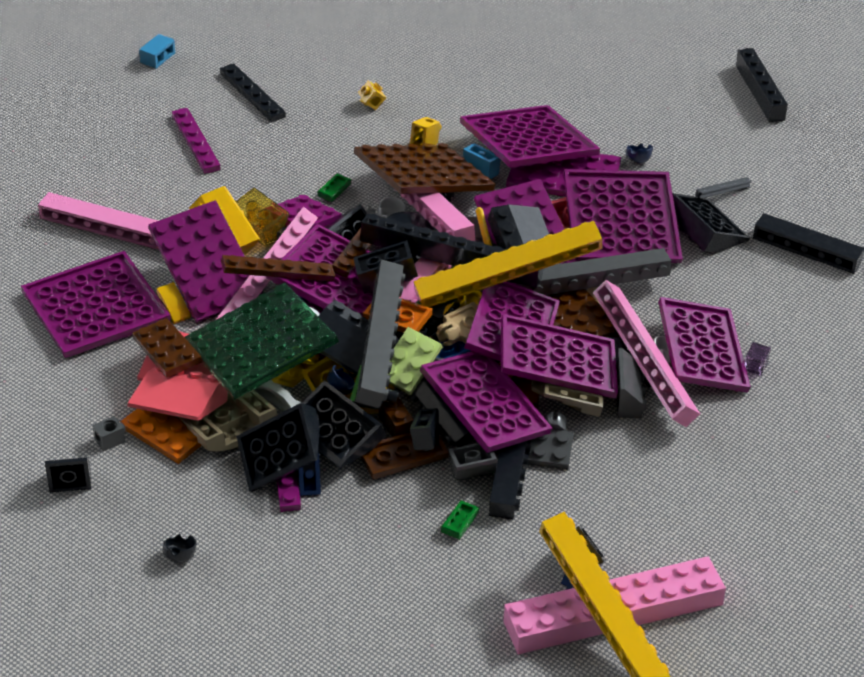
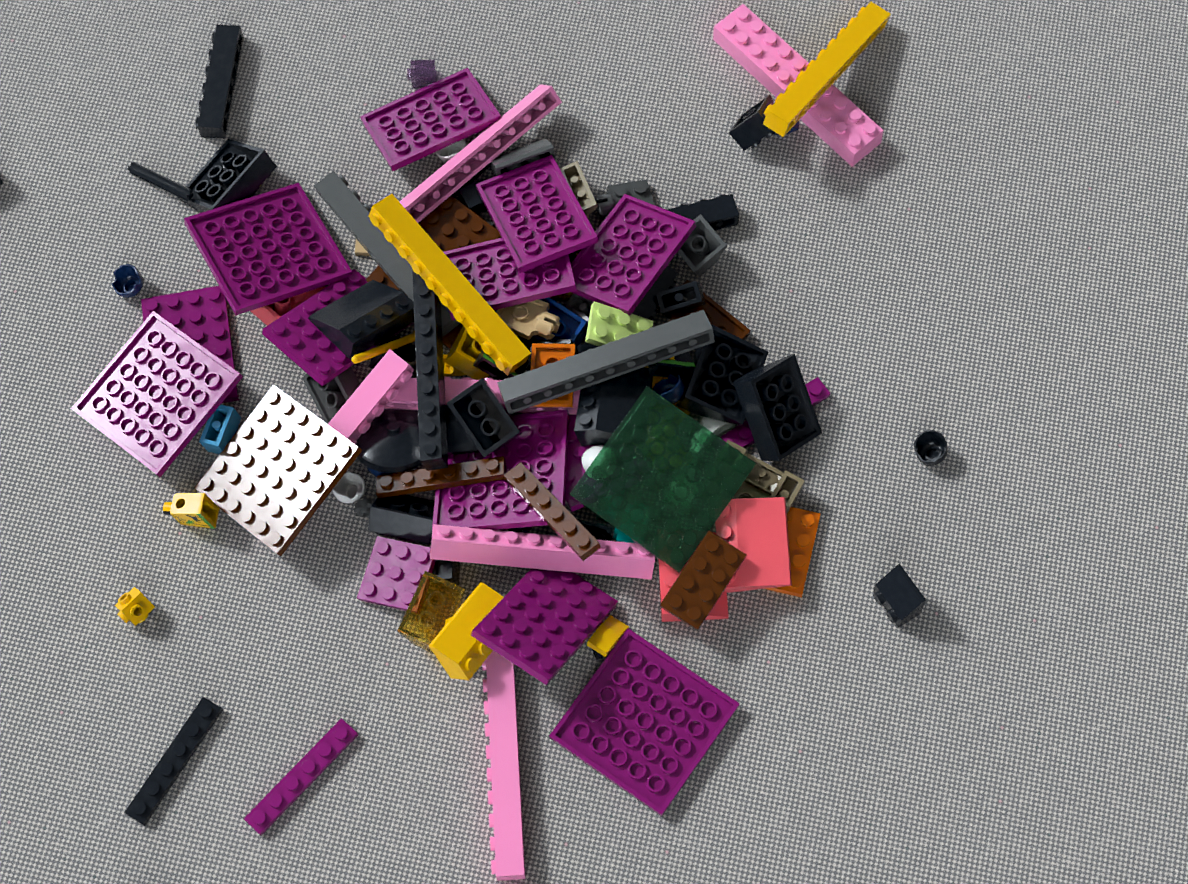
camera: 110 degrees left, 25 degrees up
(109, 433) = (827, 602): dark grey brick -> none
(334, 187) = (327, 570): green plate -> none
(460, 519) = (762, 239): green plate -> none

